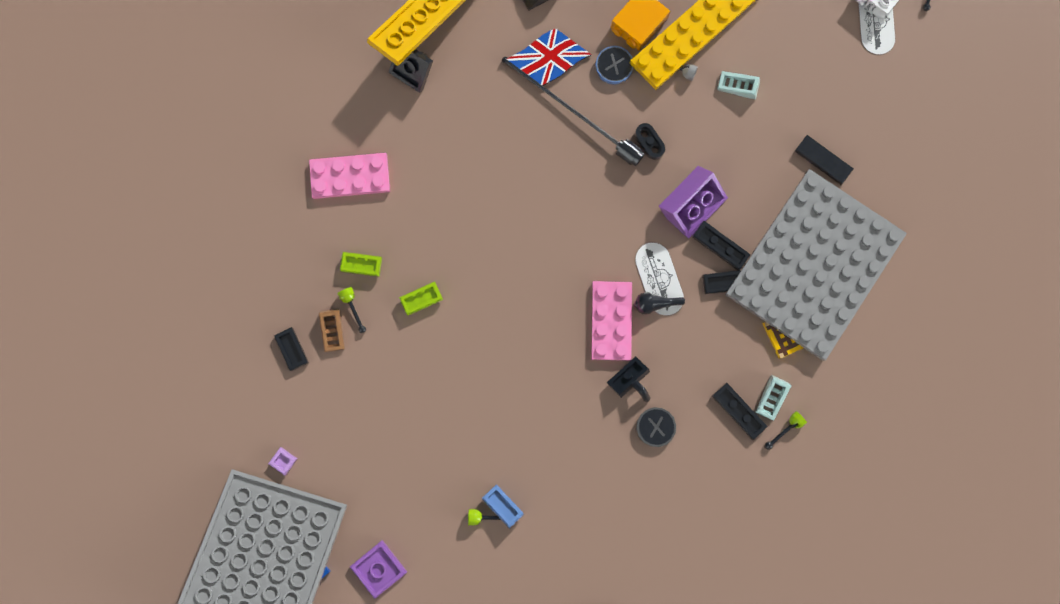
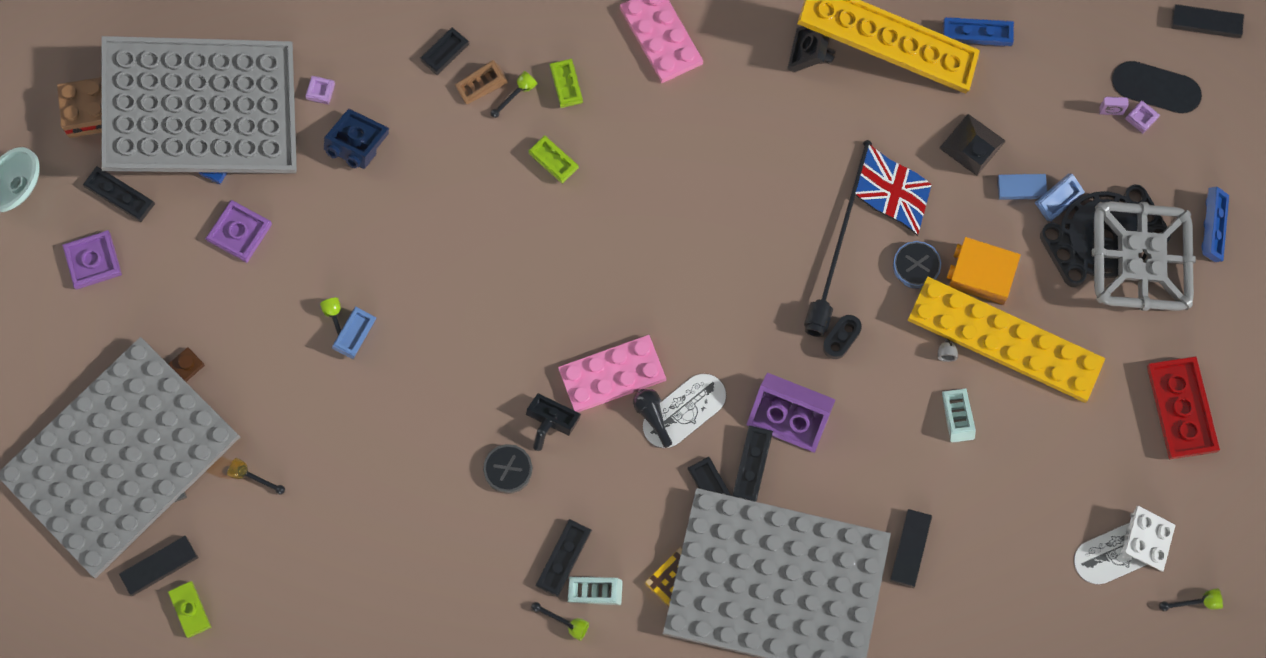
camera: 75 degrees right, 10 degrees down
(339, 448) = (355, 139): none -> dark blue plate

